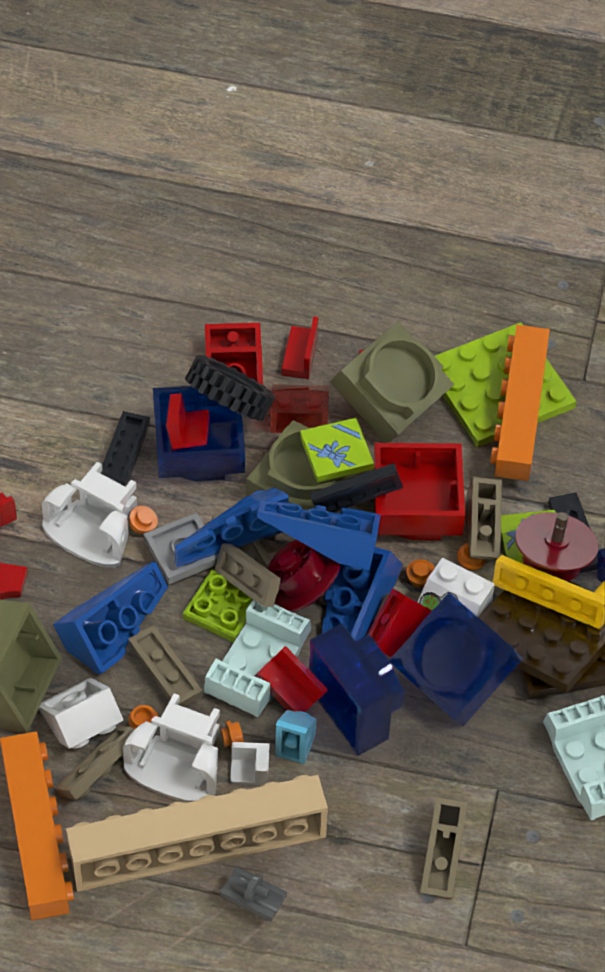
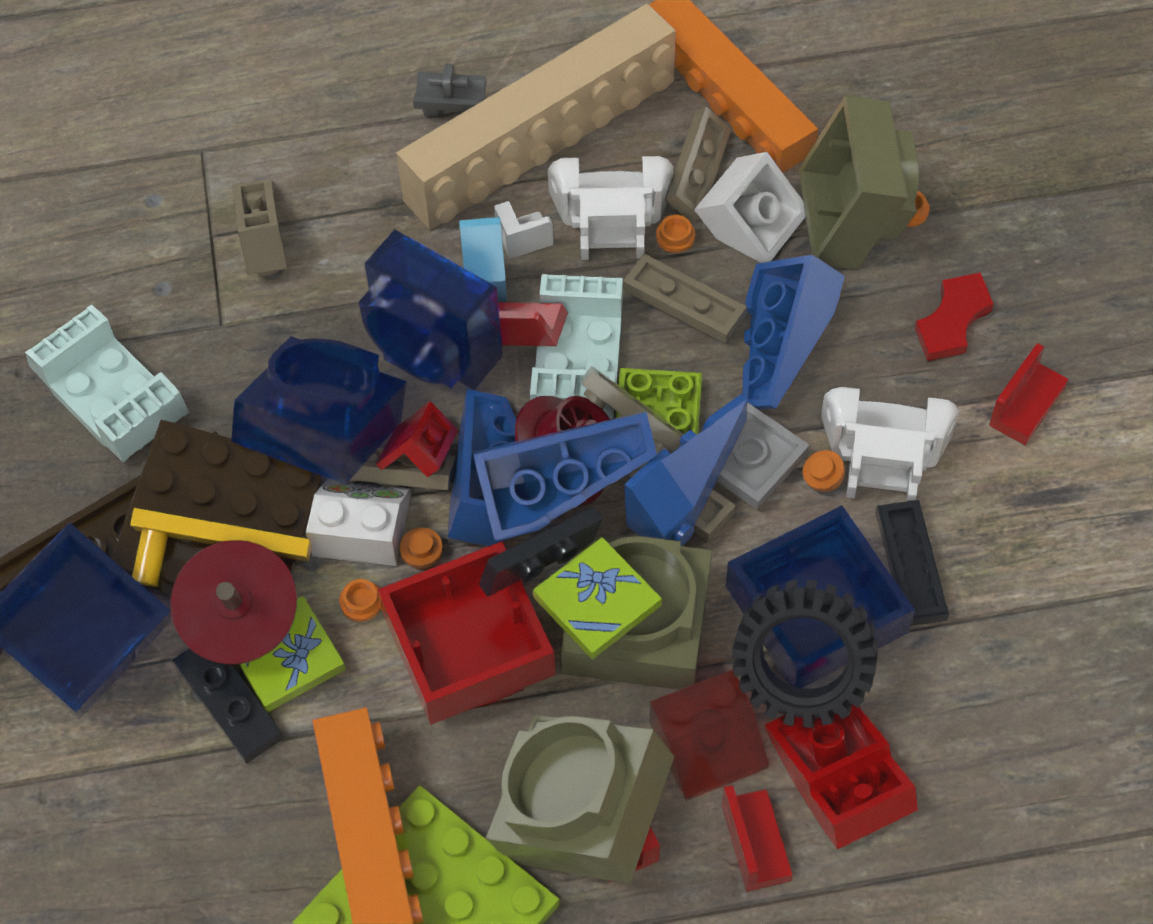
camera: 160 degrees right, 5 degrees up
(184, 427) = (836, 560): red panel -> none
(231, 733) = (560, 248): orange plate -> none
(484, 518) = (358, 636): dark tan slope -> none

